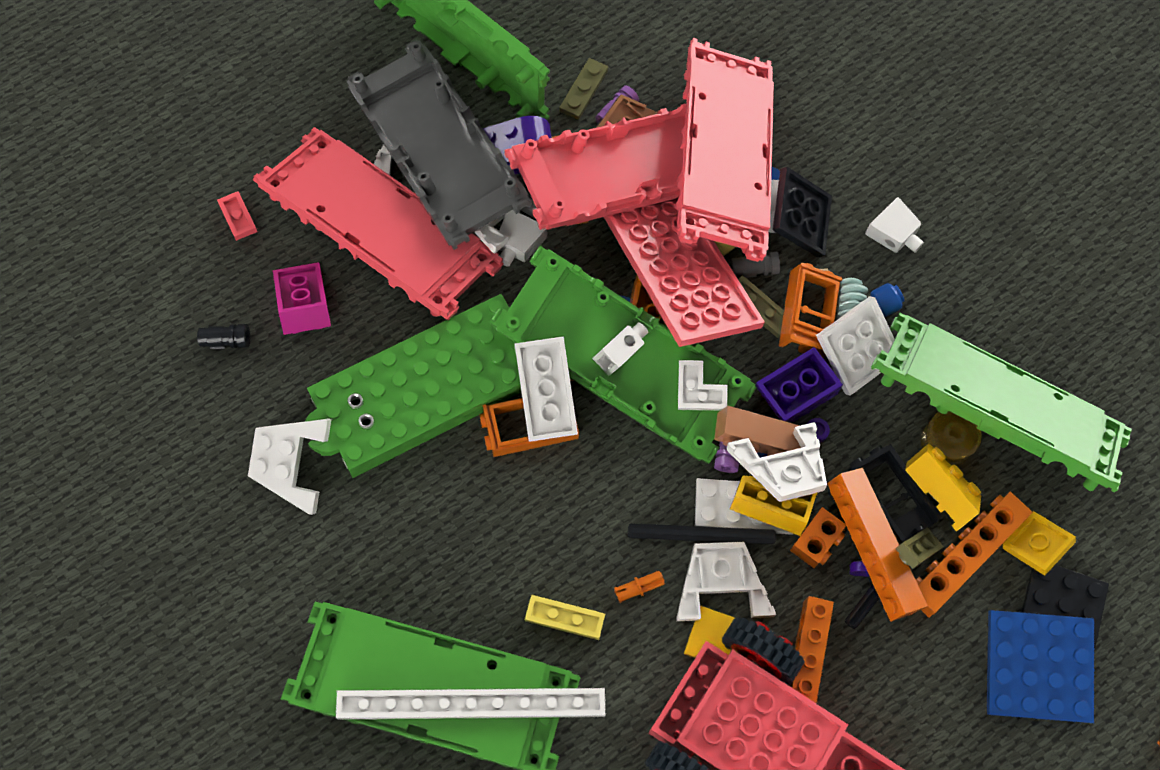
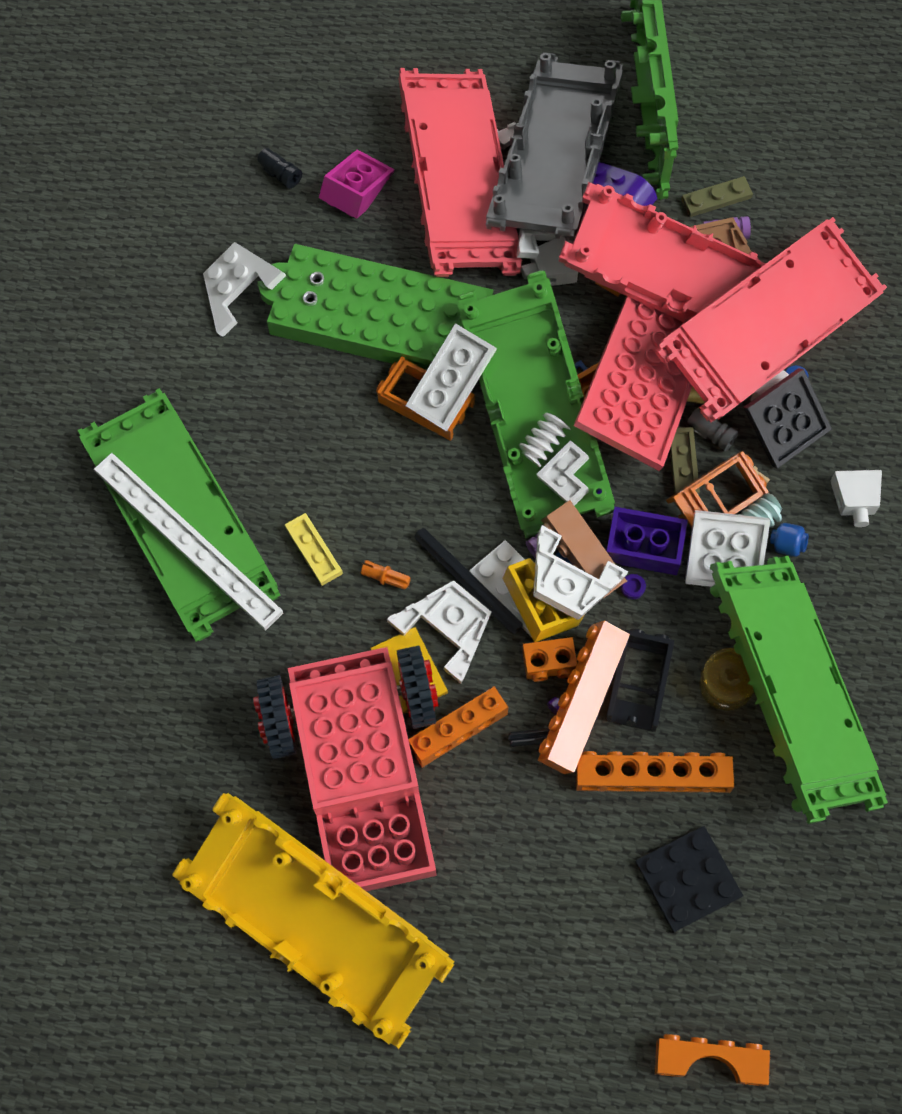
camera: 50 degrees right, 0 degrees up
(237, 215) = (370, 92): coral plate -> none
(621, 348) = (524, 397): white torso -> none
(657, 376) = (543, 438): none -> white piece
(919, 548) = (613, 729): olive plate -> none
(945, 485) = (682, 704): yellow wedge -> none
(1039, 543) = (716, 815): yellow plate -> none
(1040, 666) = (621, 899): blue plate -> none

